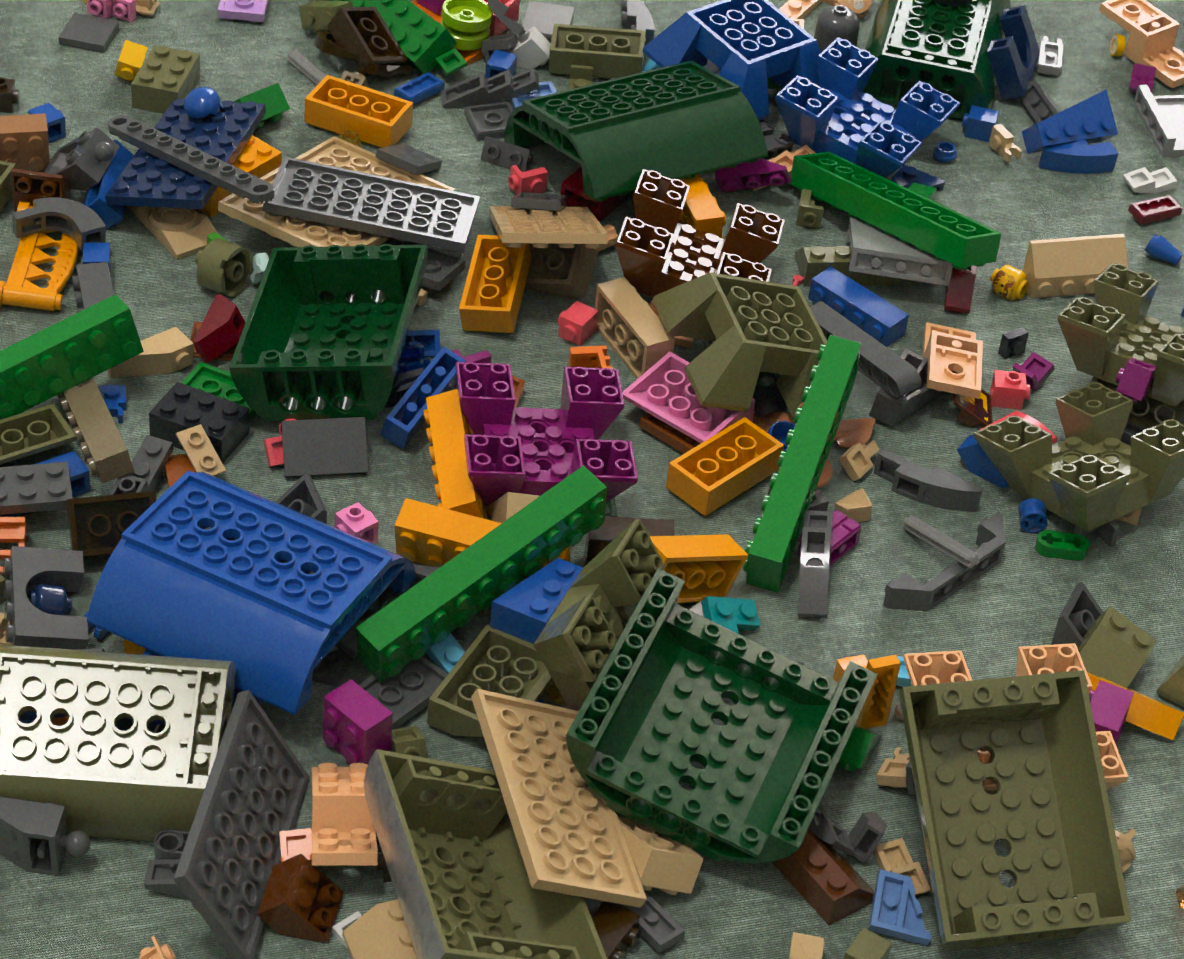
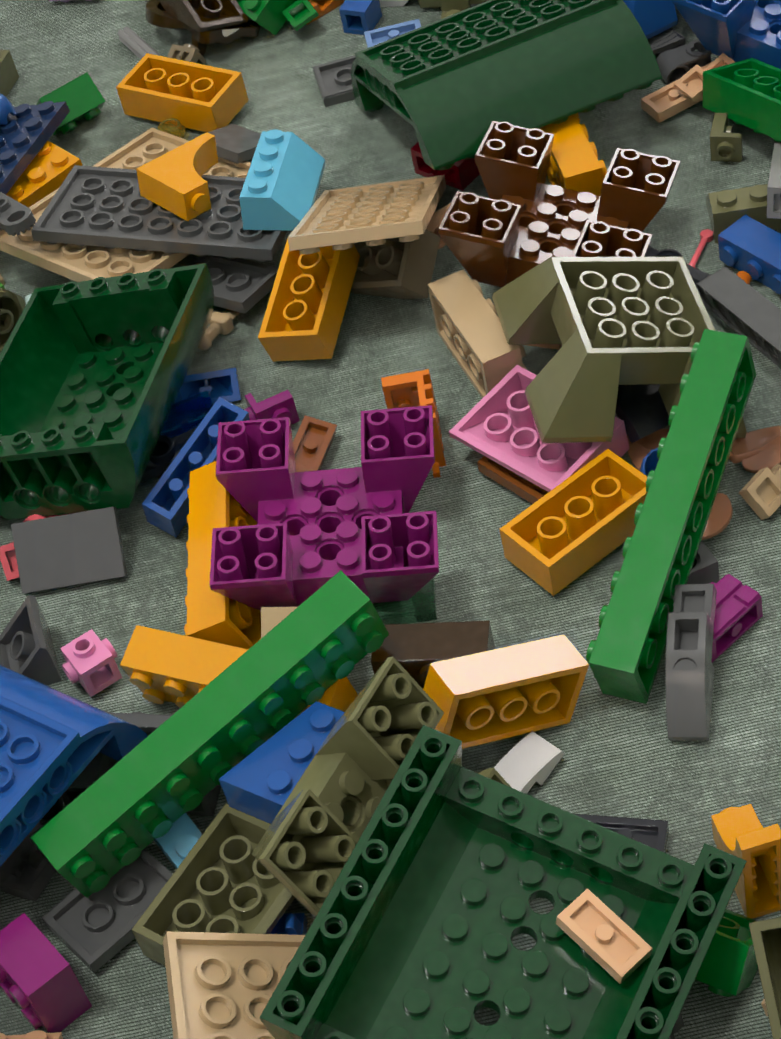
camera: 20 degrees right, 5 degrees up
(381, 181) = (176, 178): none -> light orange arch
(408, 741) = (108, 998): olive bracket -> none
(419, 88) = (262, 52): blue plate -> none
(466, 194) = (280, 182): none -> medium azure slope
(480, 90) = (337, 43): dark grey slope -> none
(505, 154) = (354, 120): dark grey hinge -> none
(528, 181) = (375, 152): coral bracket -> none
(539, 201) = (382, 176): dark grey tile -> none
(578, 323) = (413, 335): coral brick -> none
(731, 612) = (558, 756): teal plate -> none
(752, 175) = (650, 104): magenta slope -> none
(777, 718) = (604, 936): none -> light nougat plate
(855, 506) = (758, 562): tan slope -> none

